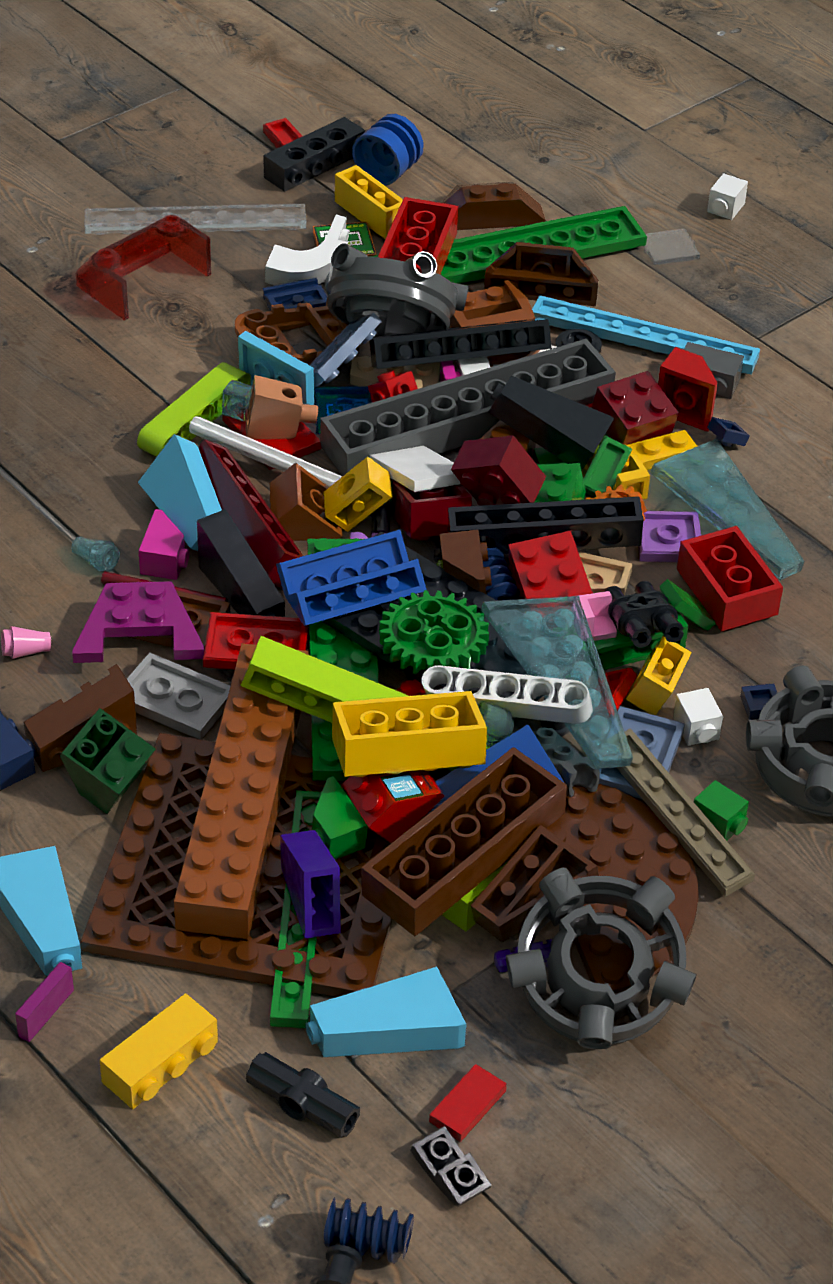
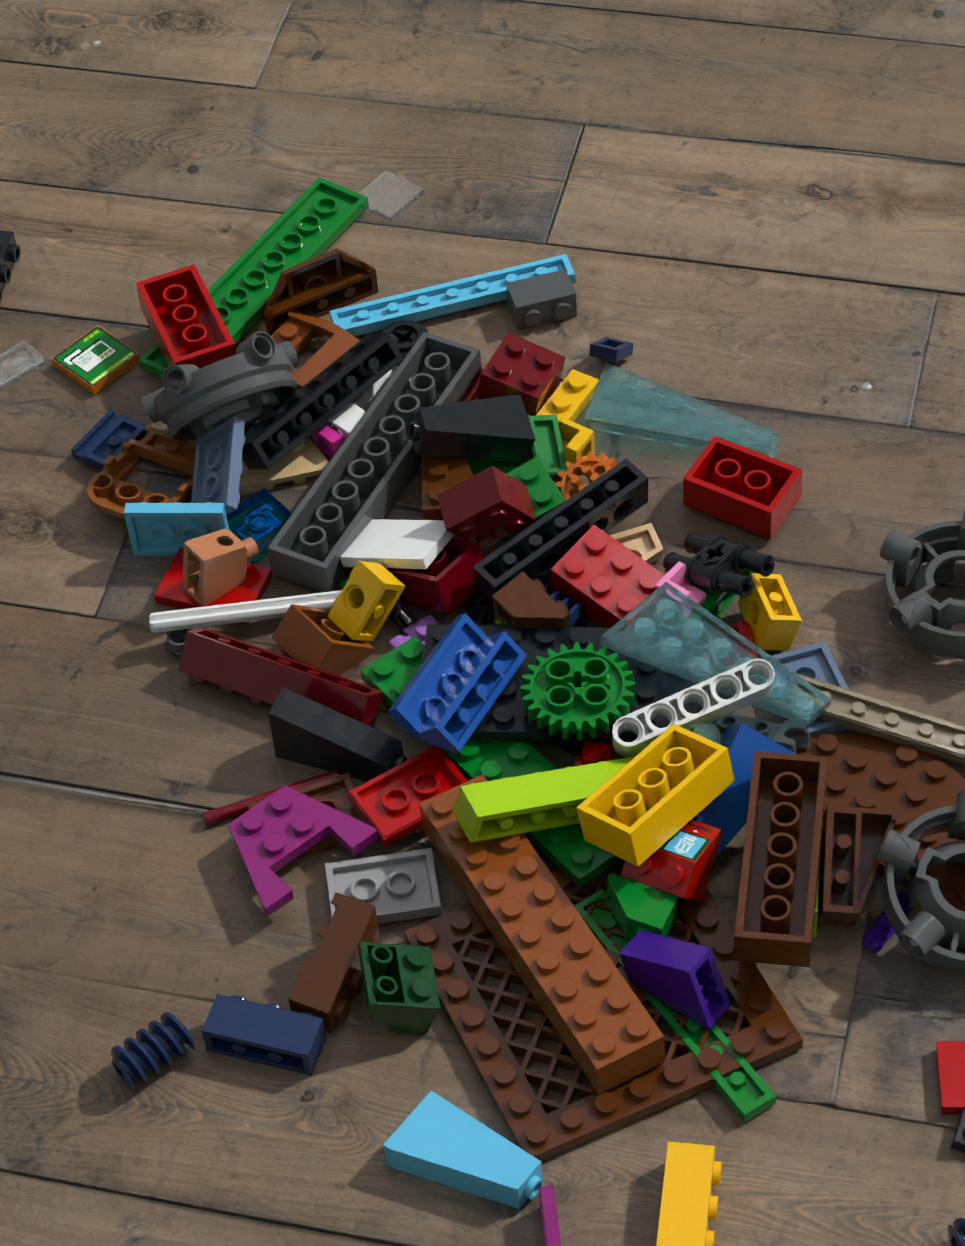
camera: 30 degrees left, 5 degrees up
(22, 642) = (198, 927): bright pink cone -> none
(98, 553) = (178, 800): clear light blue cone -> none
(162, 548) = (236, 758): dark pink slope -> none
(181, 487) = (210, 695): medium azure slope -> none
(200, 400) = (128, 609): lime beam -> none
(236, 400) = (167, 574): clear light blue plate -> none
(294, 265) = (79, 412): white arch -> none
(303, 1094) = (832, 1160): black piece -> none
(366, 199) = (88, 303): yellow brick -> none
(388, 148) = (55, 240): blue wheel -> none
(389, 1018) = (838, 1049): medium azure slope -> none
(392, 384) = (293, 481): red brick -> none
(494, 206) = (196, 239): reddish brown wedge -> none
(664, 532) = (663, 475): medium lavender tile -> none
(687, 605) = (733, 532): green tile -> none
(689, 387) = (553, 324): red slope -> none
(700, 716) = (829, 624): white brick -> none
(723, 809) = (924, 695): green brick -> none
(727, 196) = (398, 117): white brick -> none
(755, 698) = (862, 583): dark blue plate -> none

